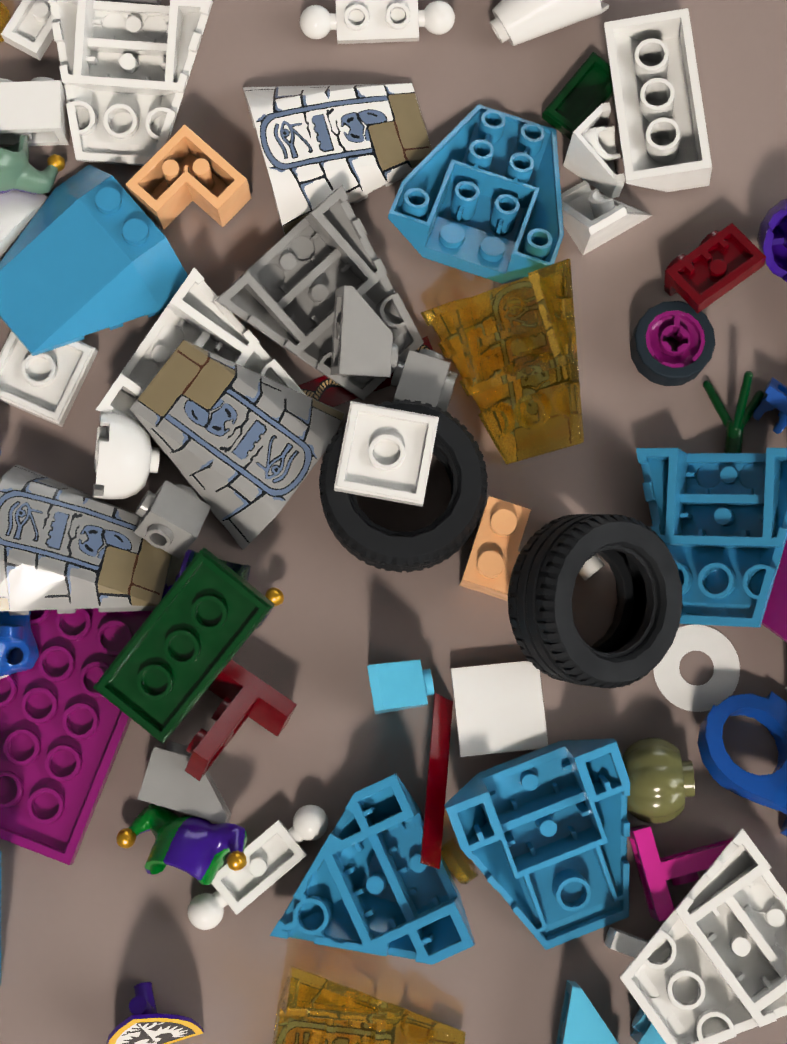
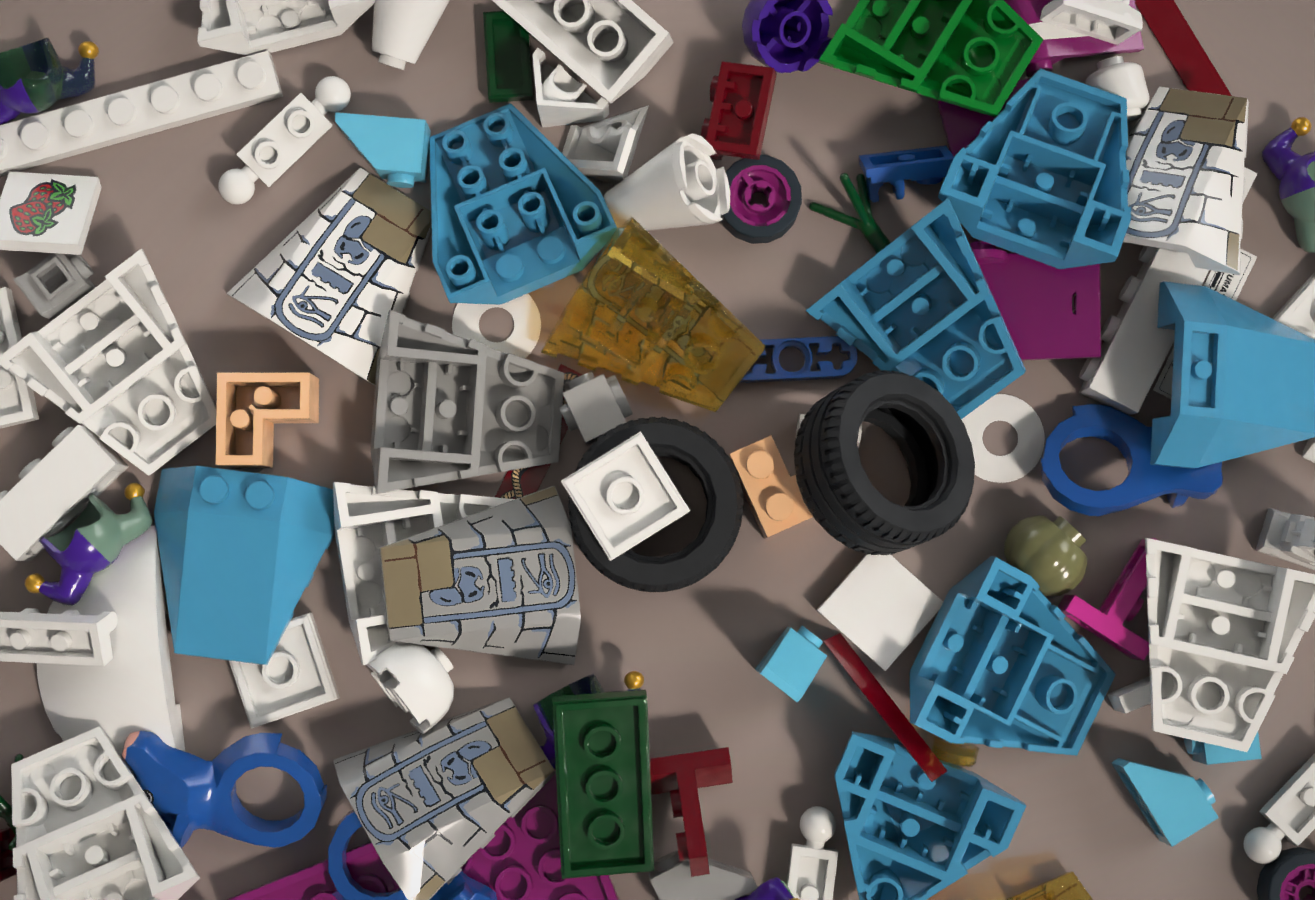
camera: 45 degrees left, 5 degrees up
(171, 517) = (499, 693): light grey brick -> none
(360, 338) = (517, 420): light grey slope -> none
(433, 279) = (526, 325): none -> white piece
(447, 84) = (391, 145): none -> medium azure slope
(612, 472) = (825, 367): none -> blue beam
(620, 277) = (673, 189): none -> white cone

